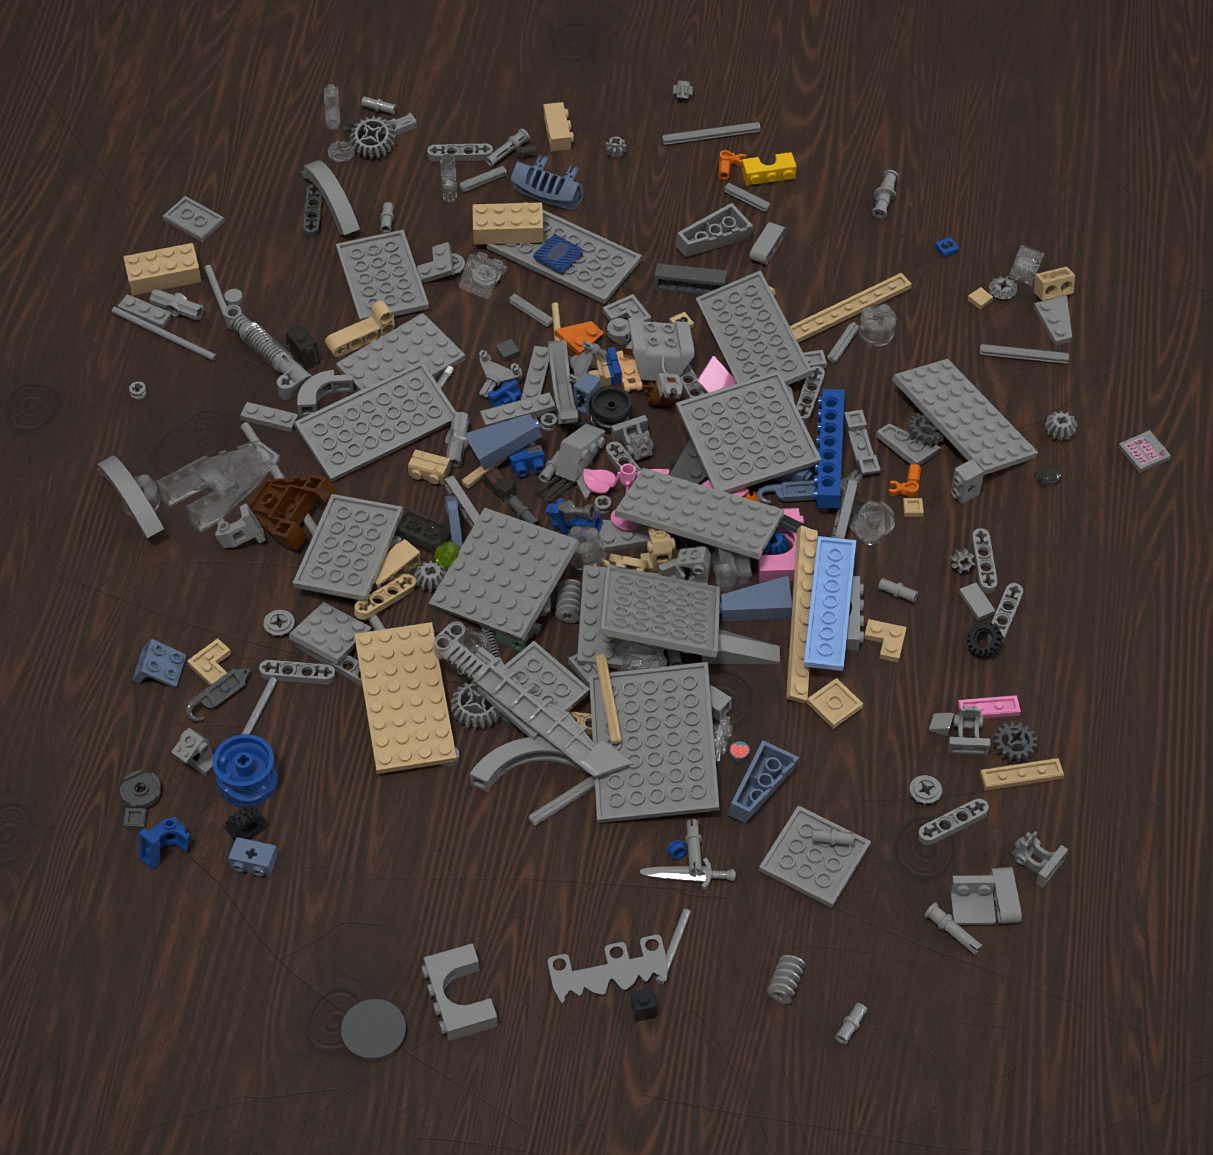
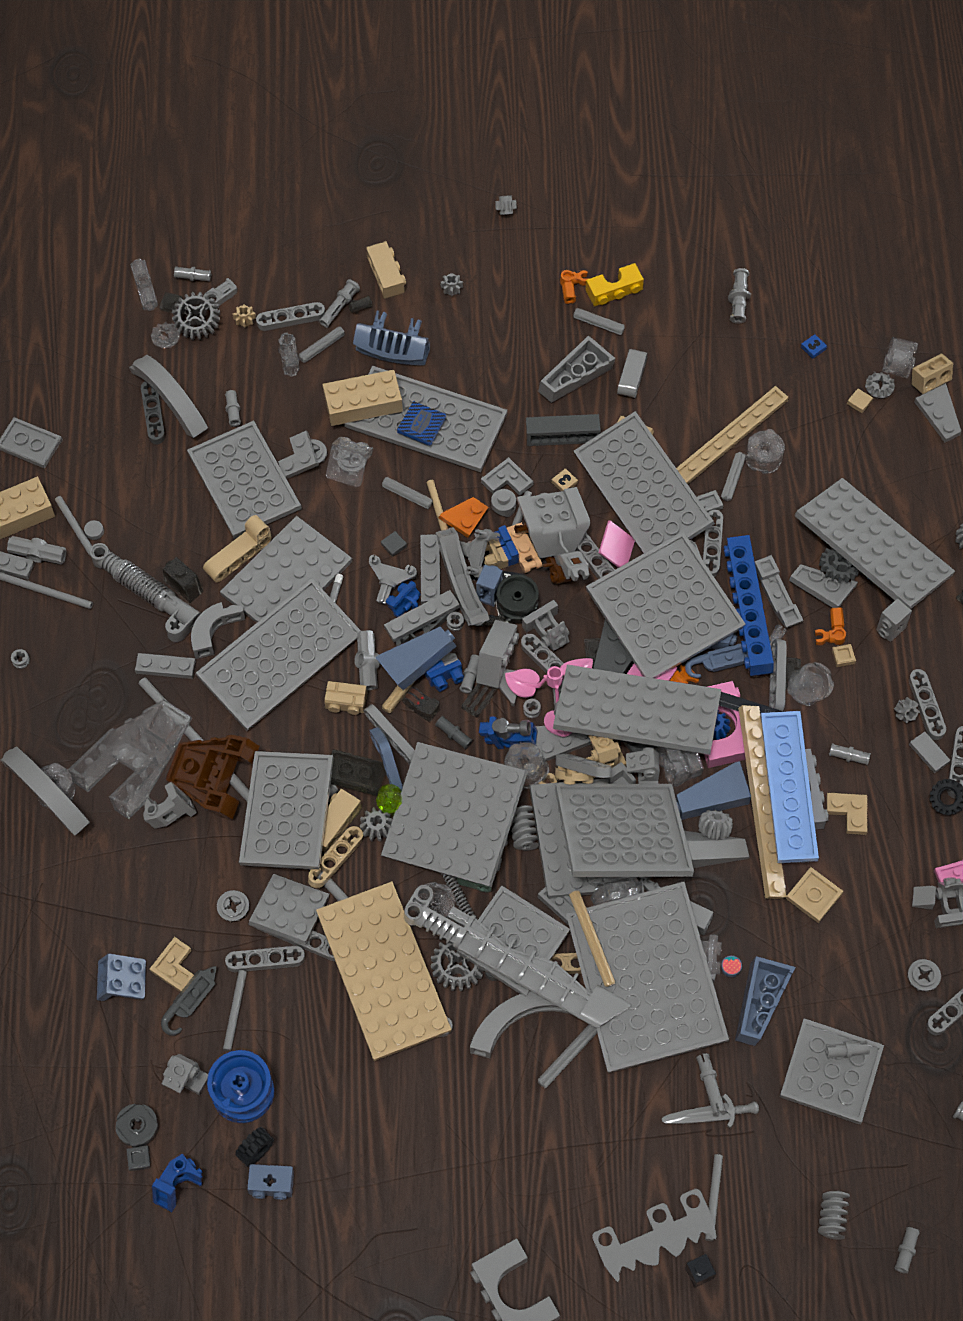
camera: 10 degrees left, 10 degrees up
(417, 145) = (244, 315): none -> tan gear
(637, 553) = (583, 765): none -> light grey beam
(676, 849) = (694, 1089): blue plate -> none
(711, 133) = (545, 251): light grey axle -> none
(752, 626) = (715, 824): none -> light grey gear
(1022, 353) = (917, 458): light grey axle -> none

